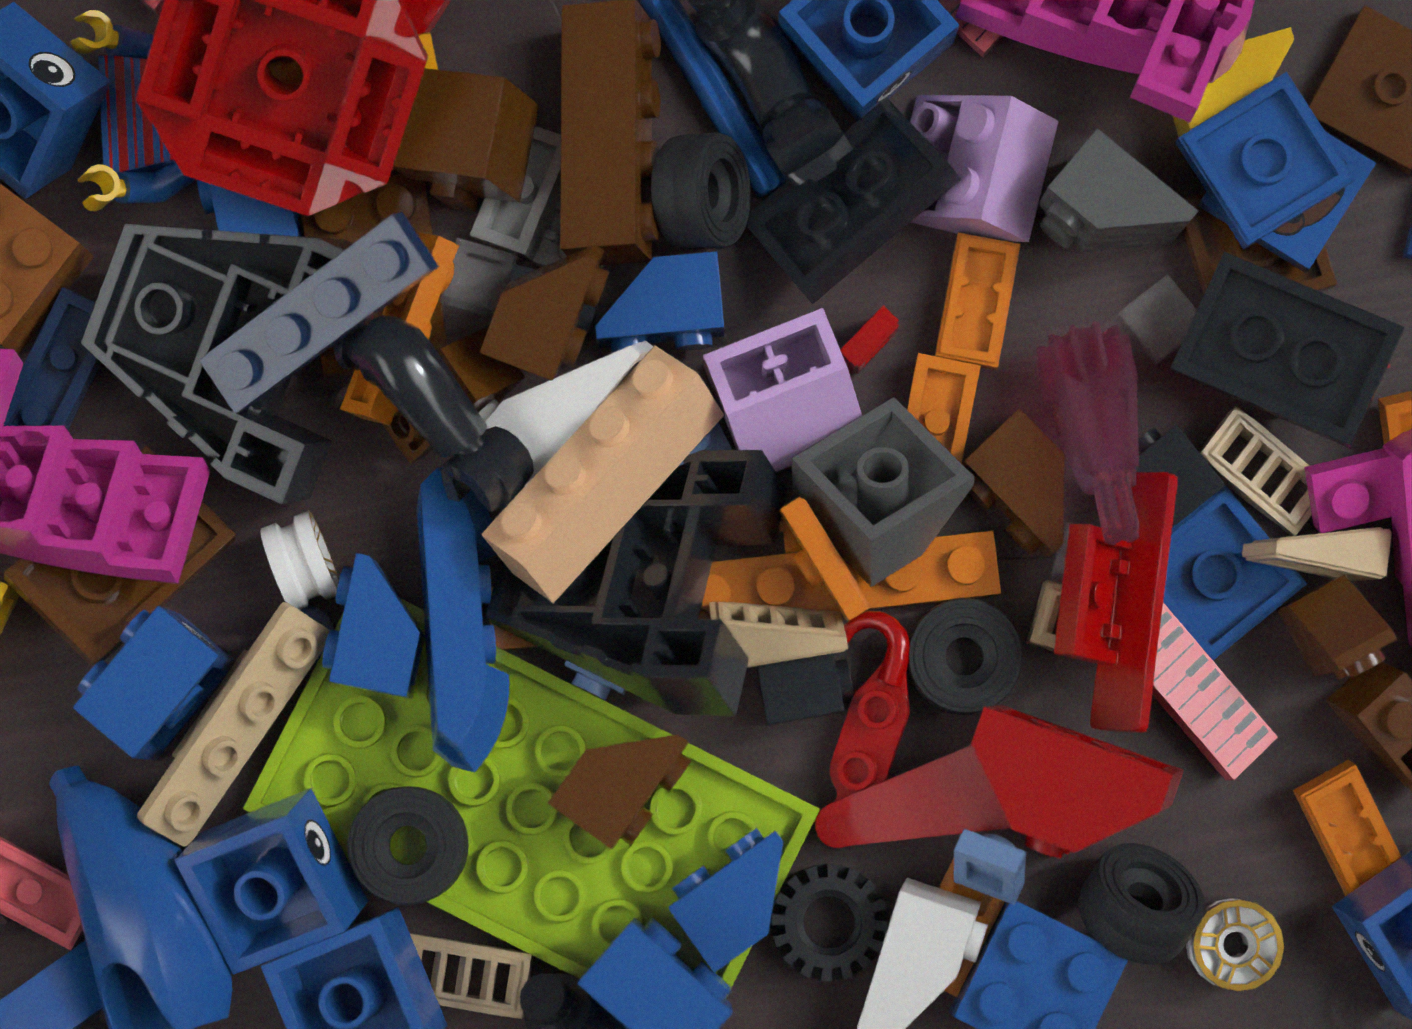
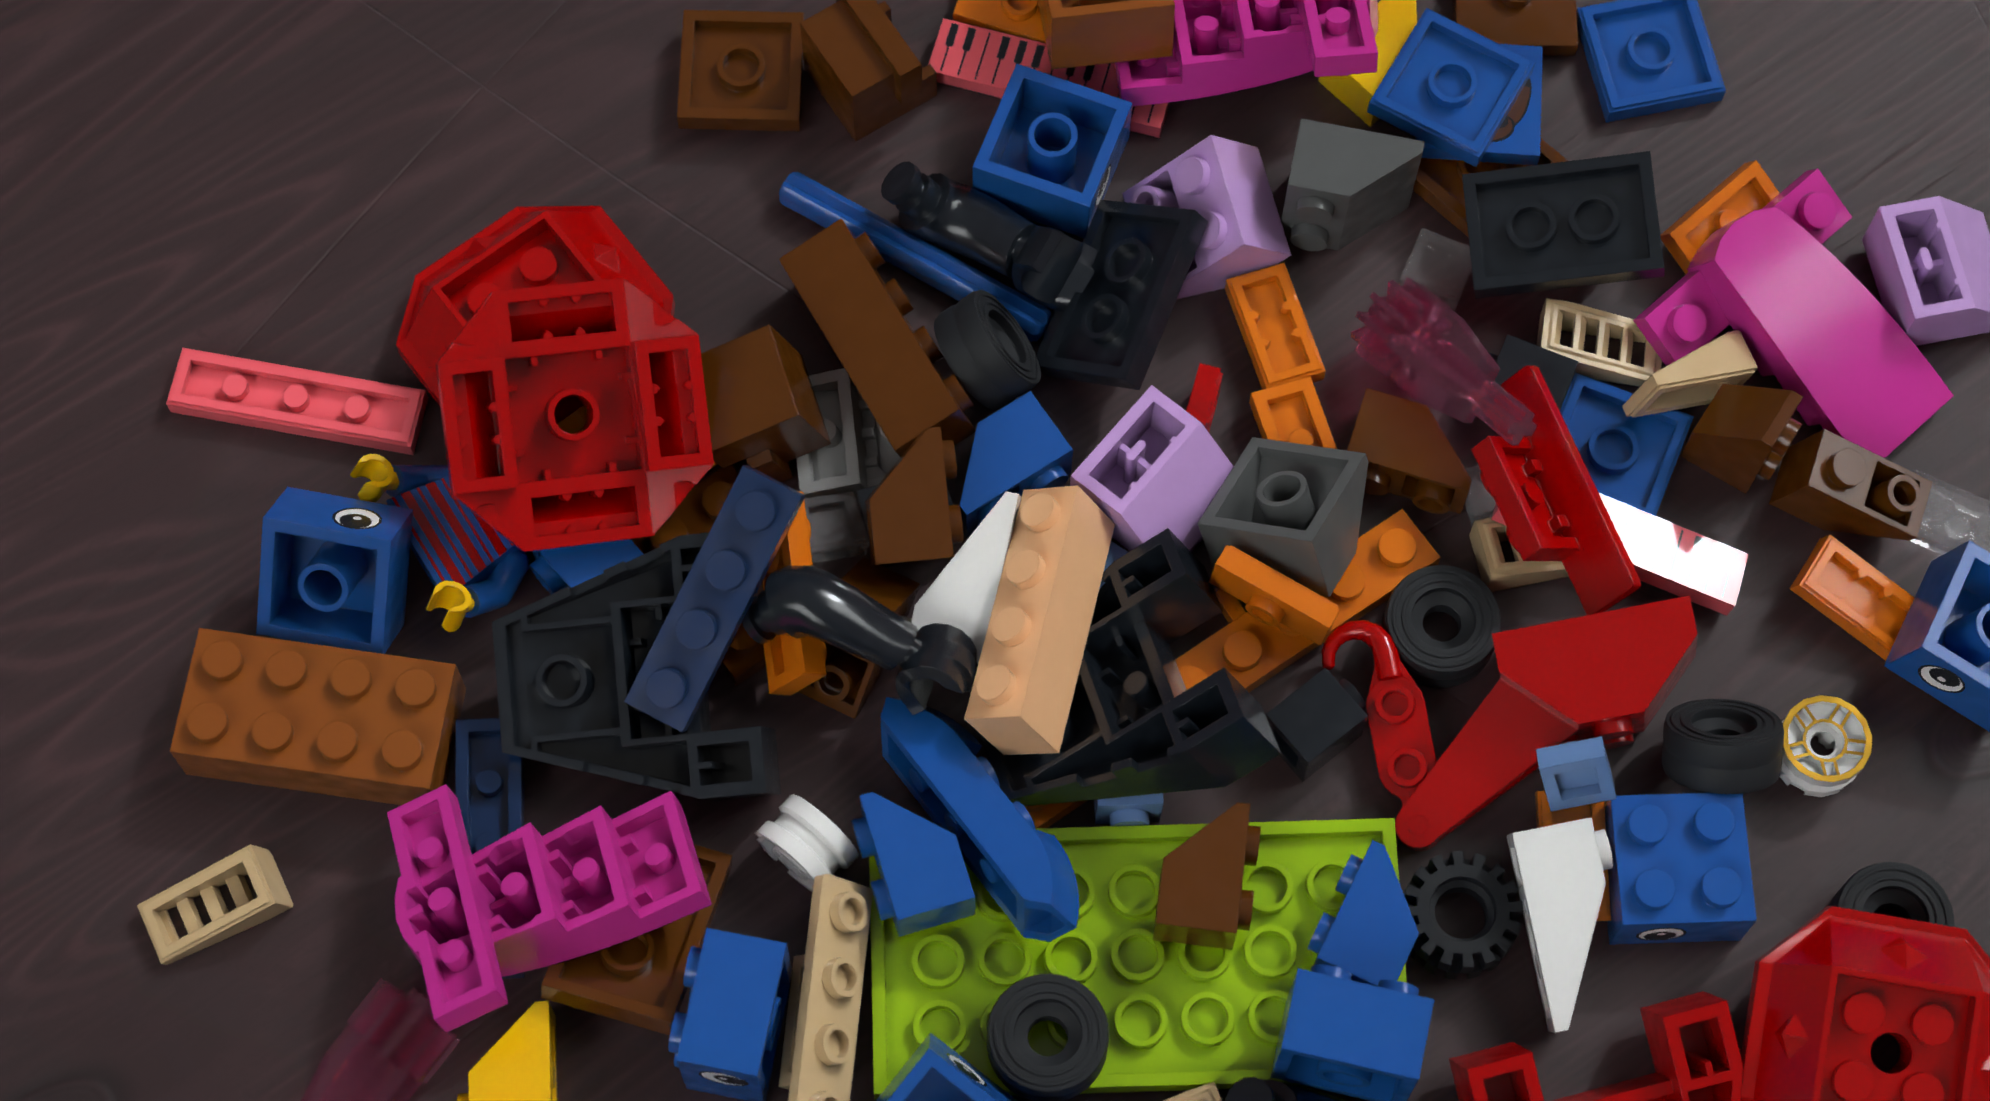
camera: 30 degrees left, 15 degrees down
(781, 633) = (1286, 674): tan slope -> none

